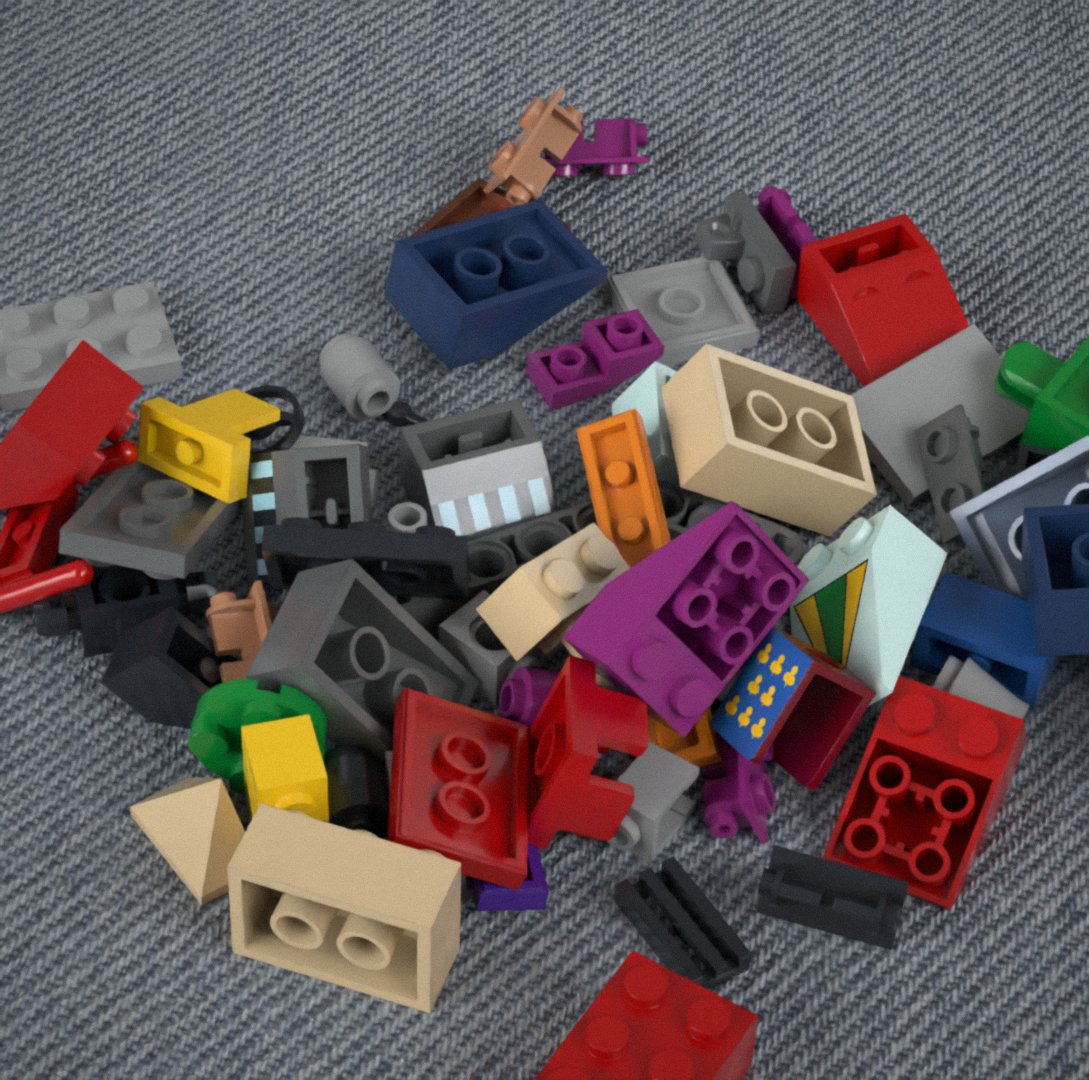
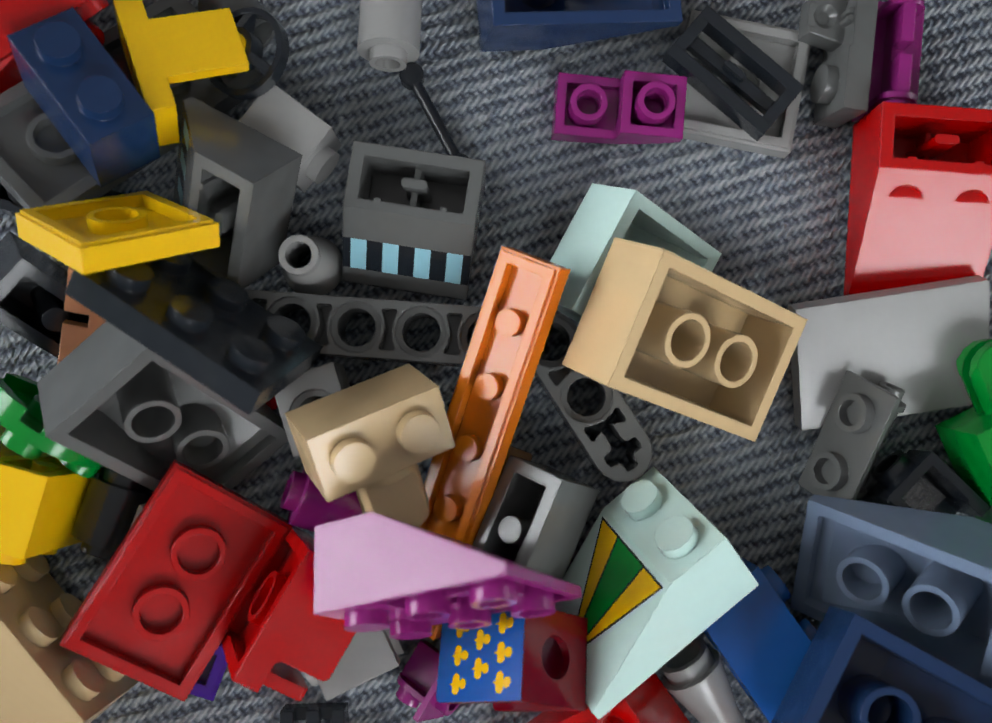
camera: 35 degrees right, 40 degrees up
(169, 467) = (86, 96): none -> dark blue brick
(237, 533) = (116, 230): none -> yellow tile
(673, 294) = (745, 53): none -> black tile

